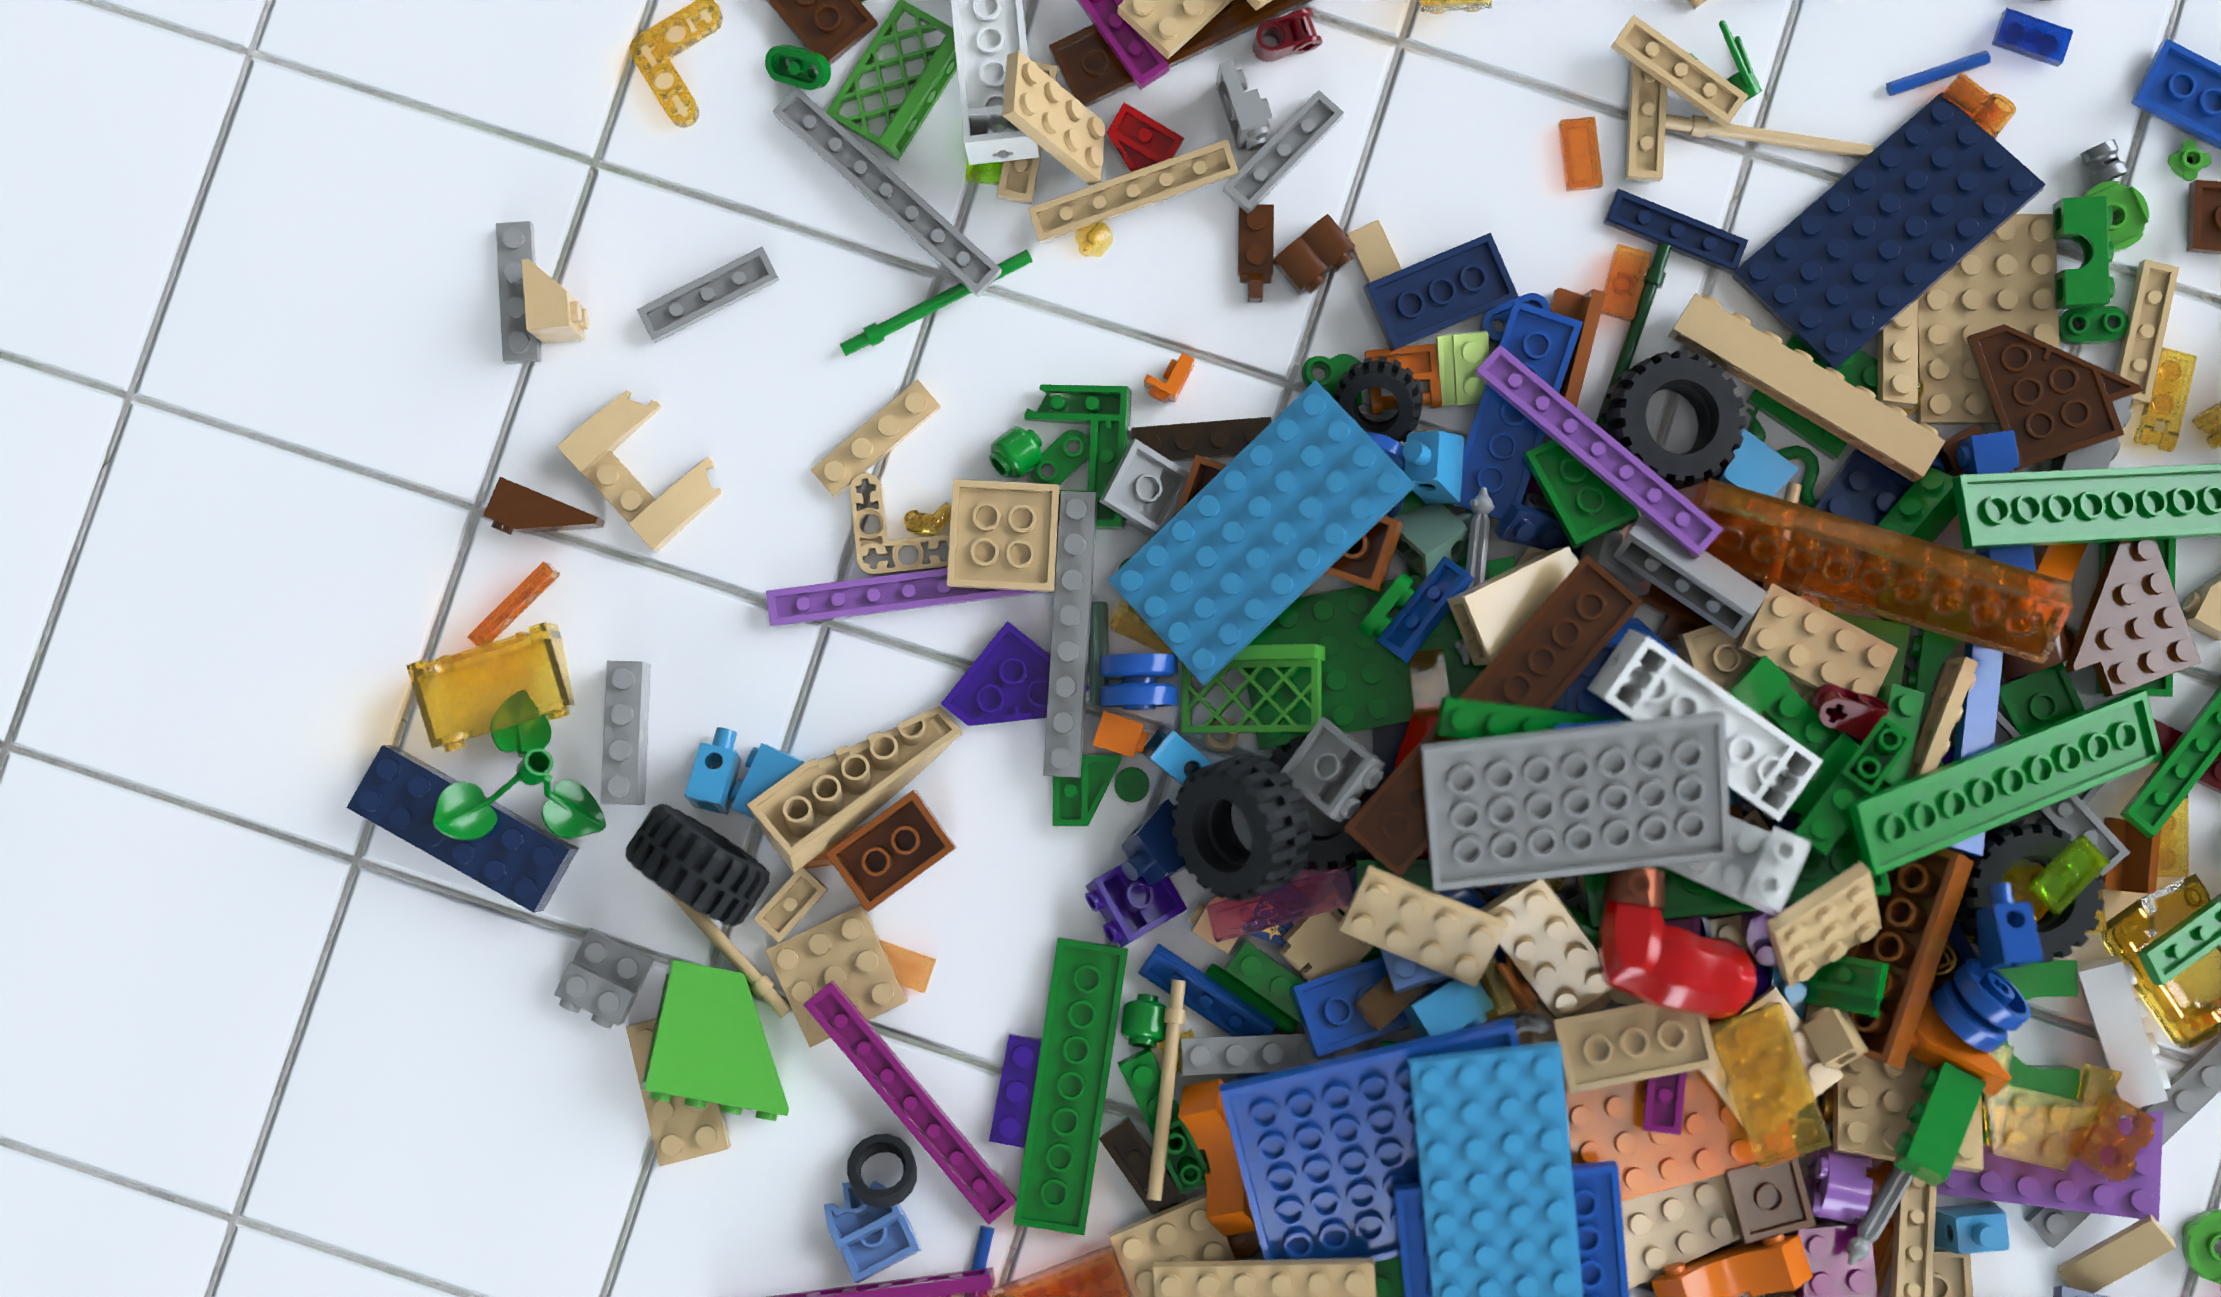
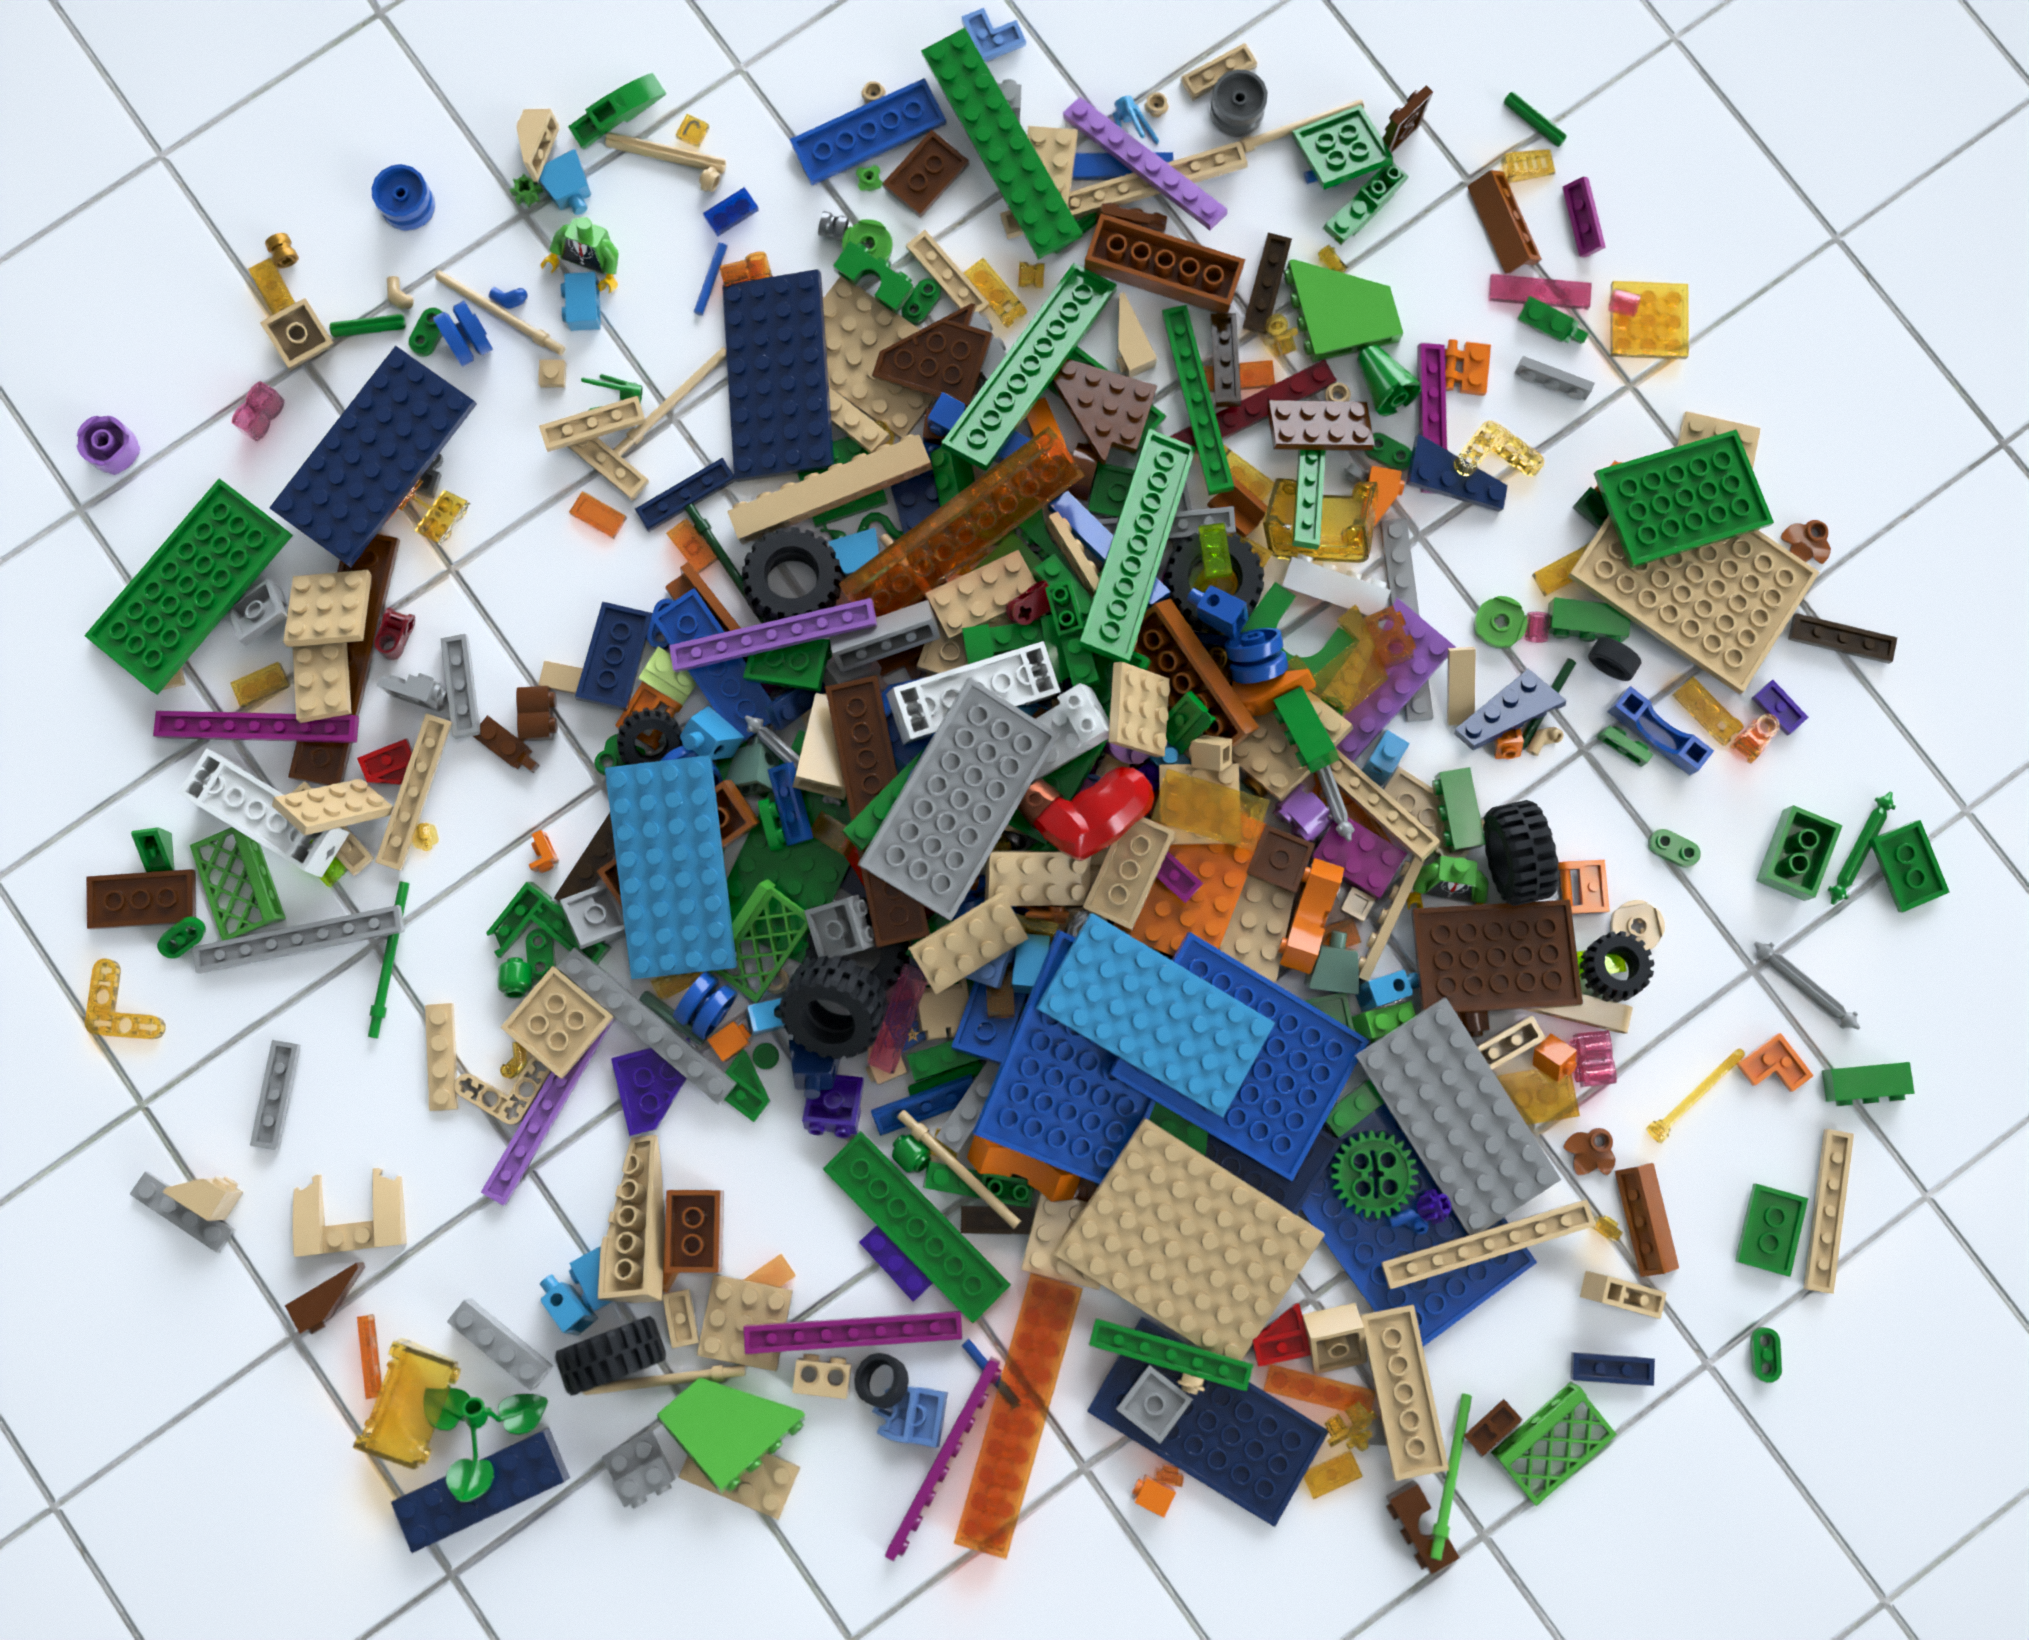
camera: 55 degrees left, 5 degrees down
(830, 1107) = (822, 1385): none -> tan brick

